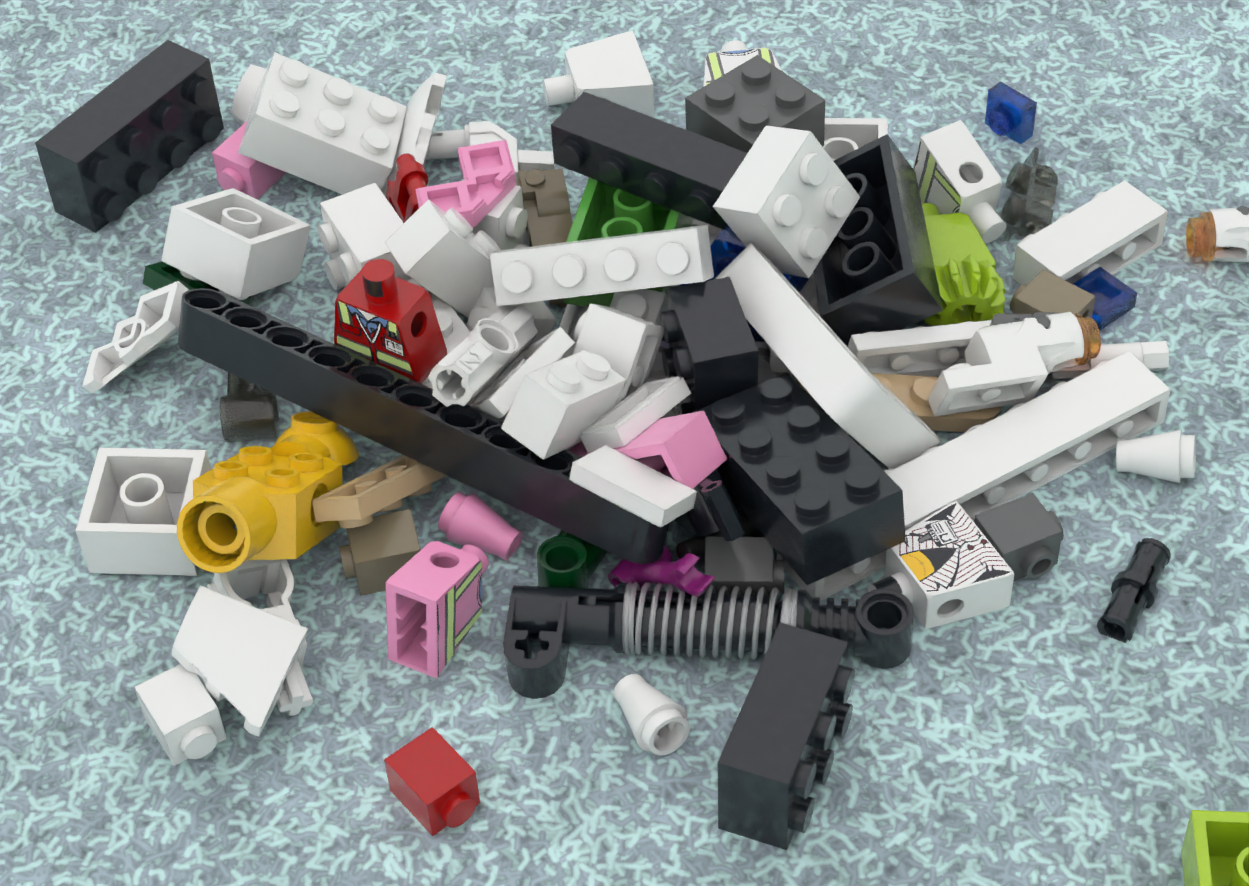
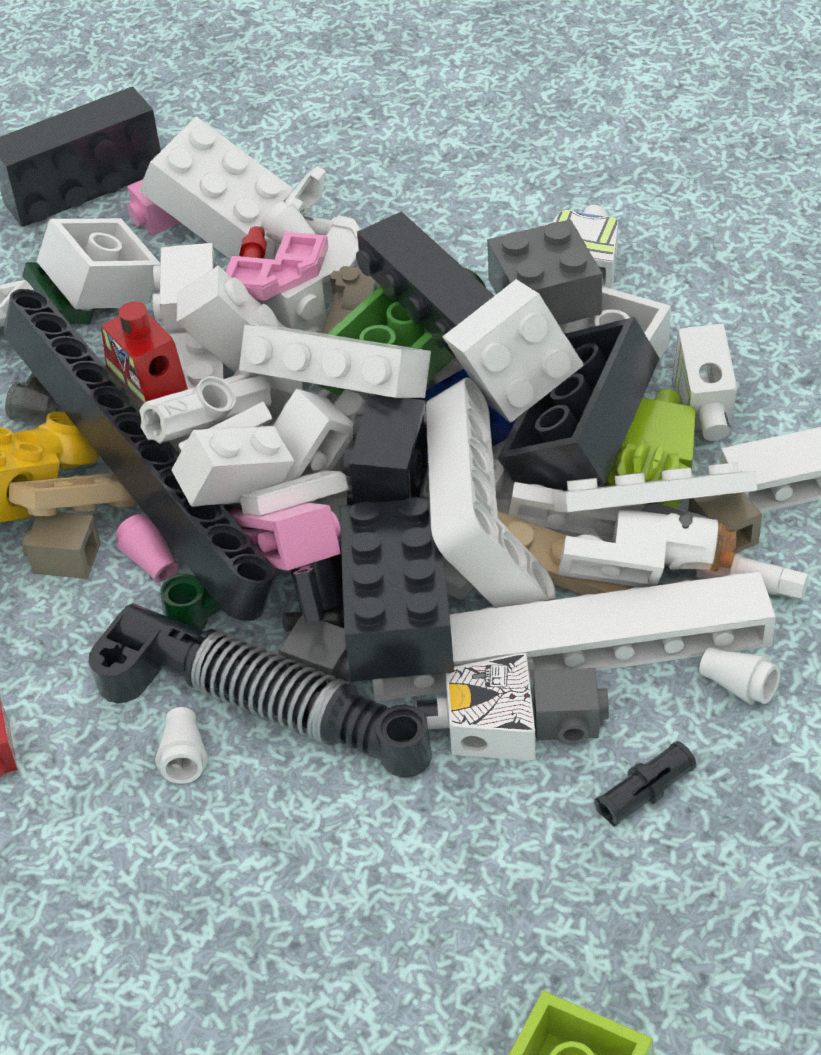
camera: 25 degrees right, 0 degrees up
(433, 605) = (67, 596): bright pink torso -> none
(436, 146) = (284, 219): none -> white cone
(607, 69) = (471, 209): white torso -> none
(632, 485) = (244, 550): white tile -> none
(664, 571) = (253, 631): magenta brick -> none
(785, 737) = (257, 800): black brick -> none
(980, 306) = (633, 489): none -> white plate
(1010, 113) = (799, 332): clear blue plate -> none
(1030, 198) = (779, 401): clear smoke hinge -> none
(1111, 296) = (781, 518): clear blue plate -> none

